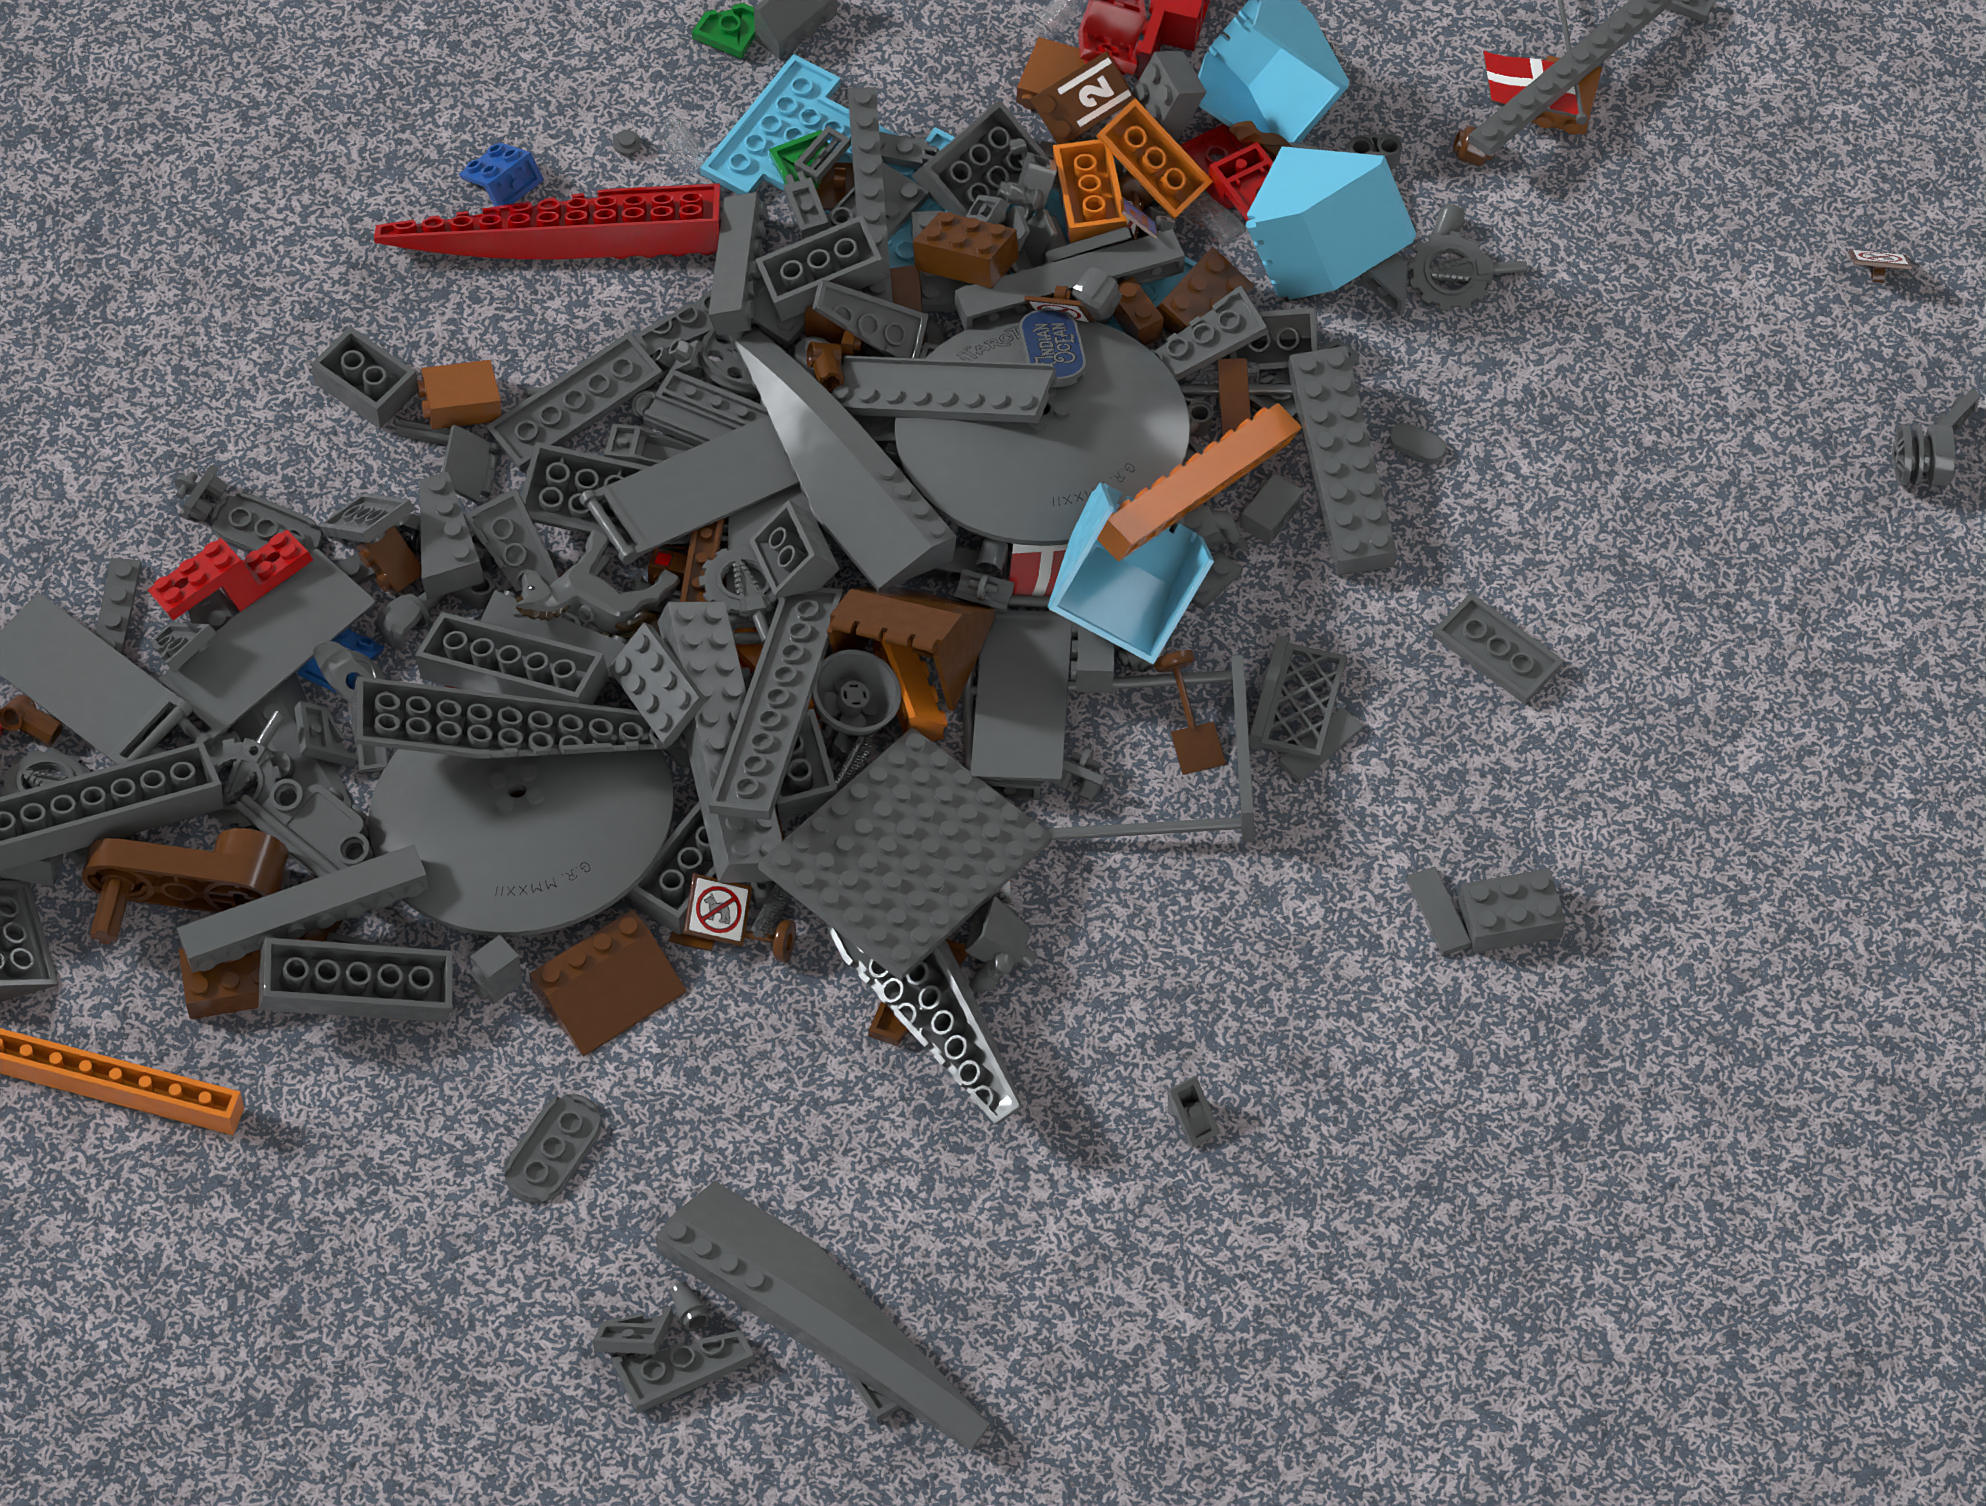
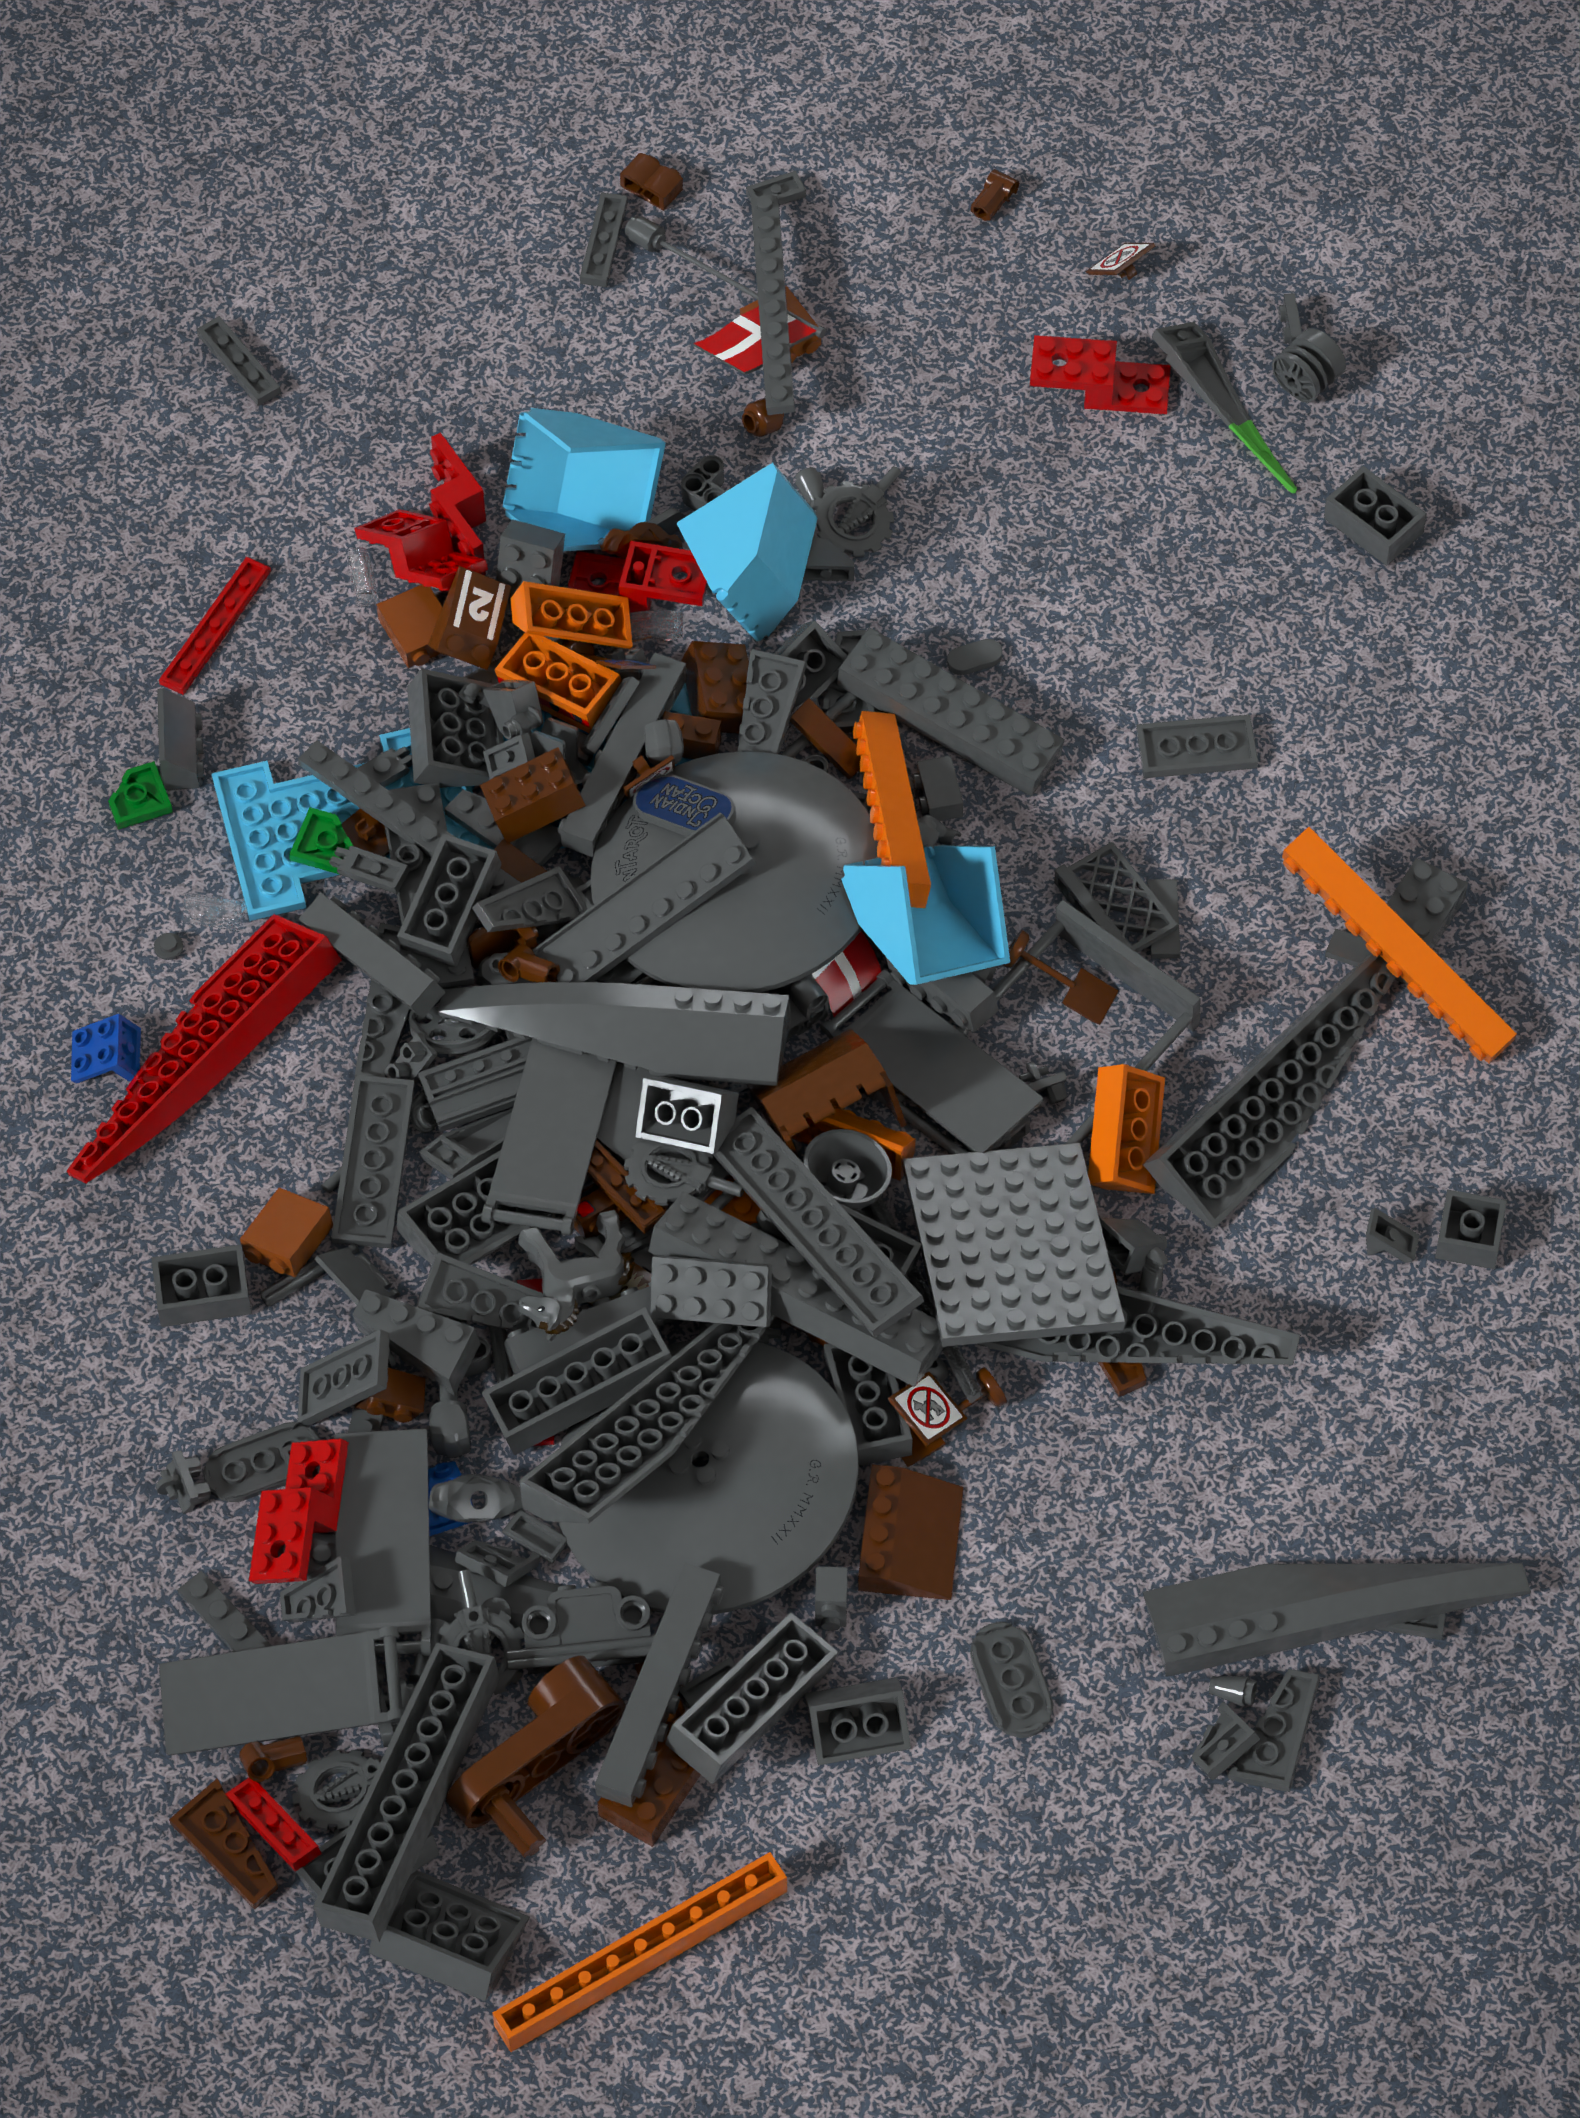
camera: 45 degrees left, 0 degrees up
(415, 1070) = (858, 1720): none -> dark grey slope
(827, 133) = (339, 842): dark grey tile -> none
(984, 590) = (830, 1021): dark grey hips -> none
(1096, 858) = (1125, 1128): none -> orange slope
(1223, 939) = (1256, 1115): none -> dark grey wedge
(1256, 1162) = (1471, 1229): none -> dark grey brick
(1450, 915) = (1398, 945): none -> orange brick
(1757, 326) = (1094, 368): none -> red bracket
(1839, 605) = (1375, 515): none -> dark grey brick
(1843, 386) = (1198, 364): none -> dark grey plate
(1852, 135) = (996, 191): none -> reddish brown piece

